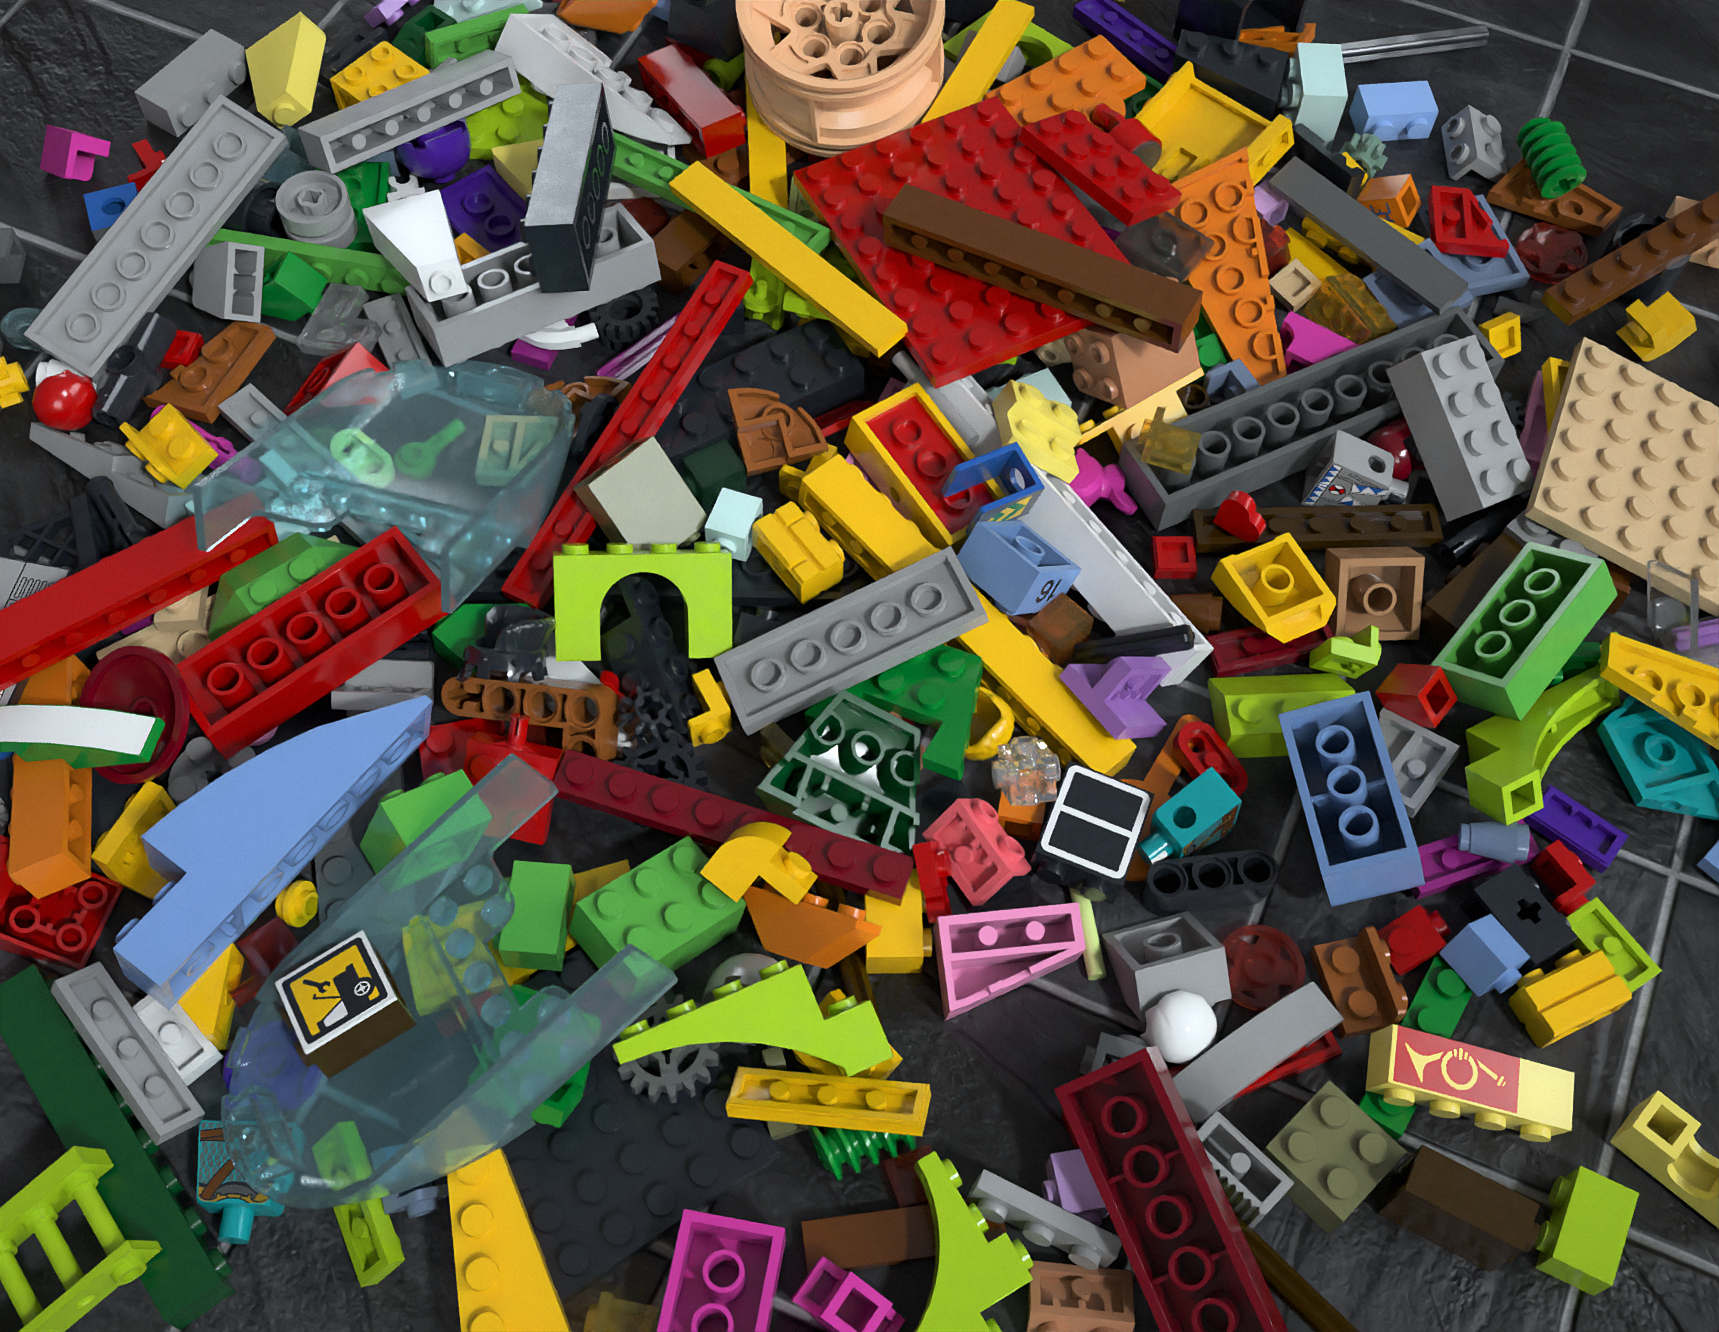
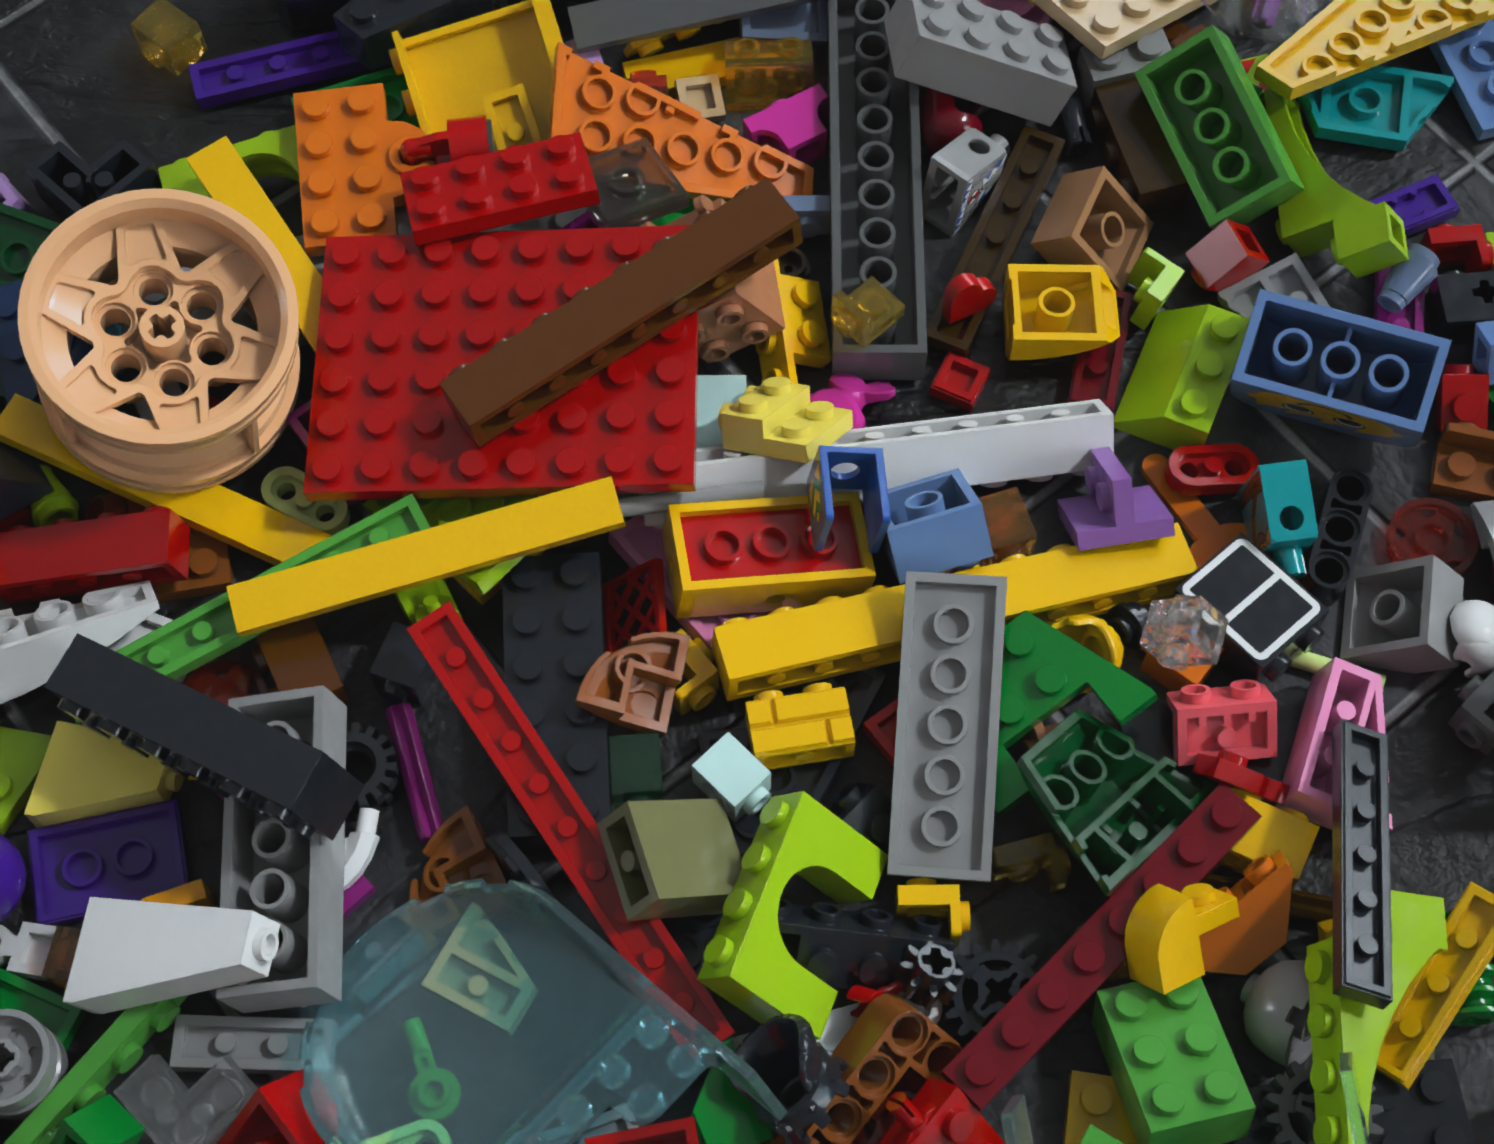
camera: 60 degrees left, 5 degrees up
(882, 969) = (1361, 866): none -> black tile
(1137, 644) = (1070, 465): black axle -> none
(1200, 609) = (1040, 387): reddish brown cone -> none

